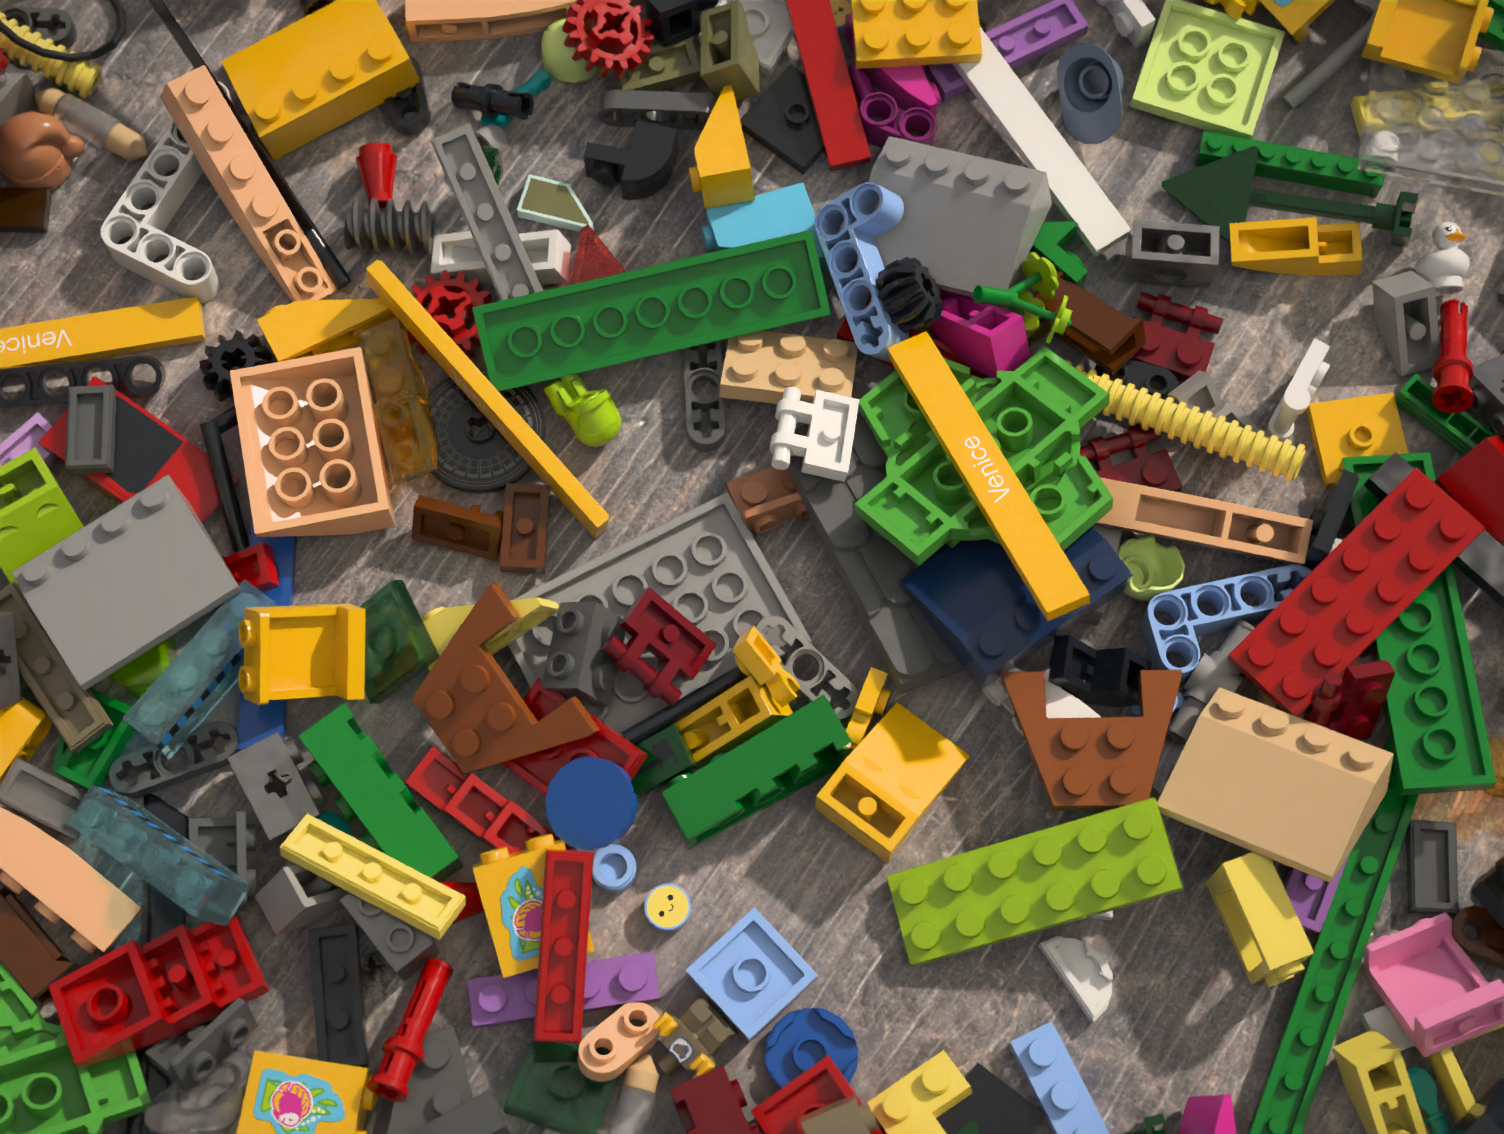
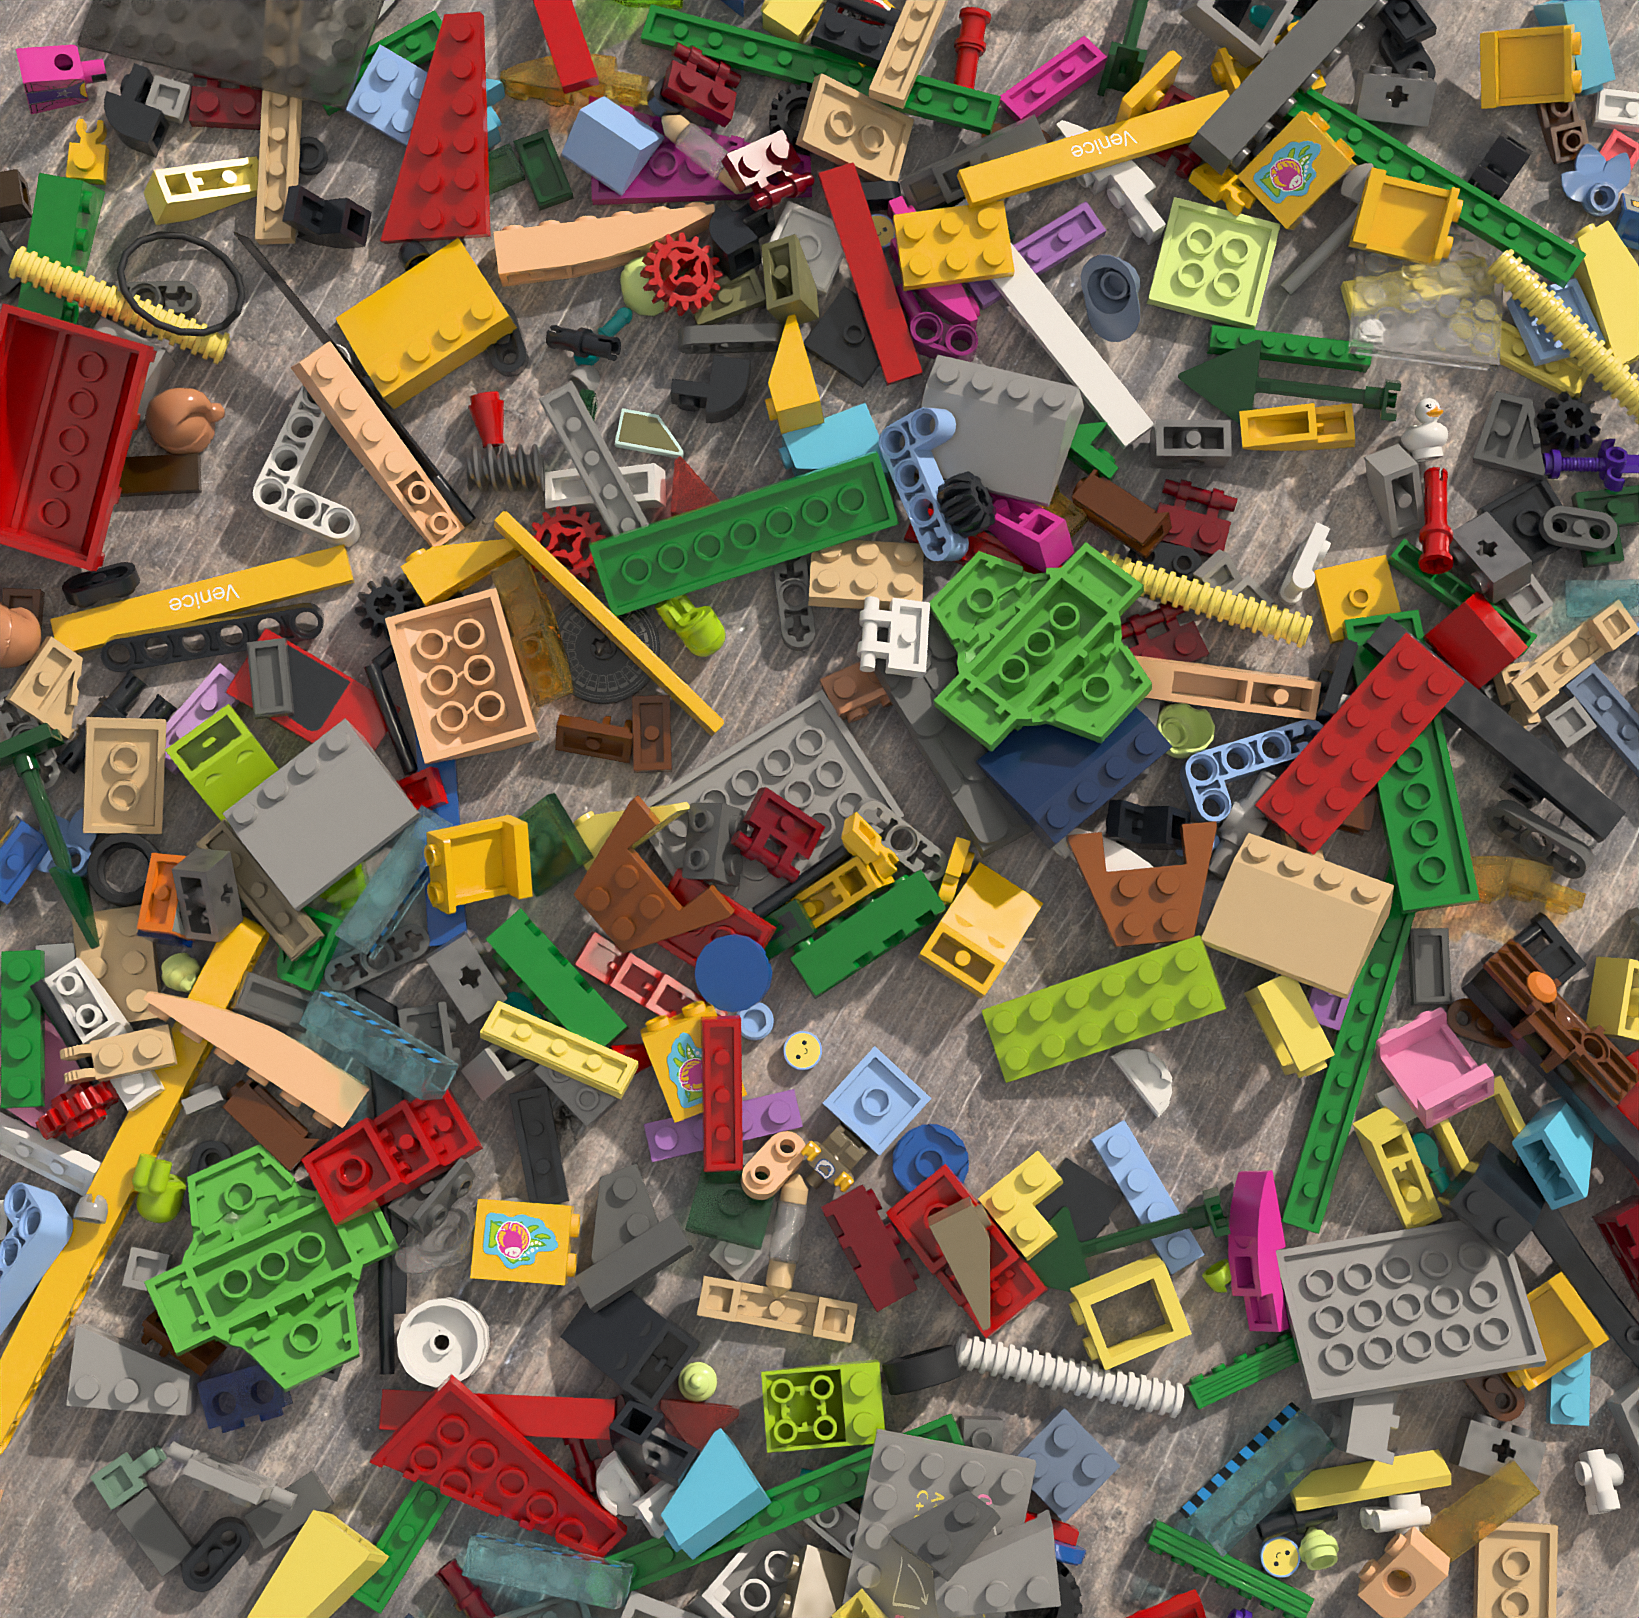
camera: 10 degrees left, 10 degrees up
(91, 124) = (227, 388): piece -> none
(405, 1048) = (600, 1186): red pin -> none
(989, 477) = (1044, 668): yellow tile -> none
(1042, 278) = (1069, 507): plant -> none
(1354, 701) = (1360, 840): dark red plate -> none

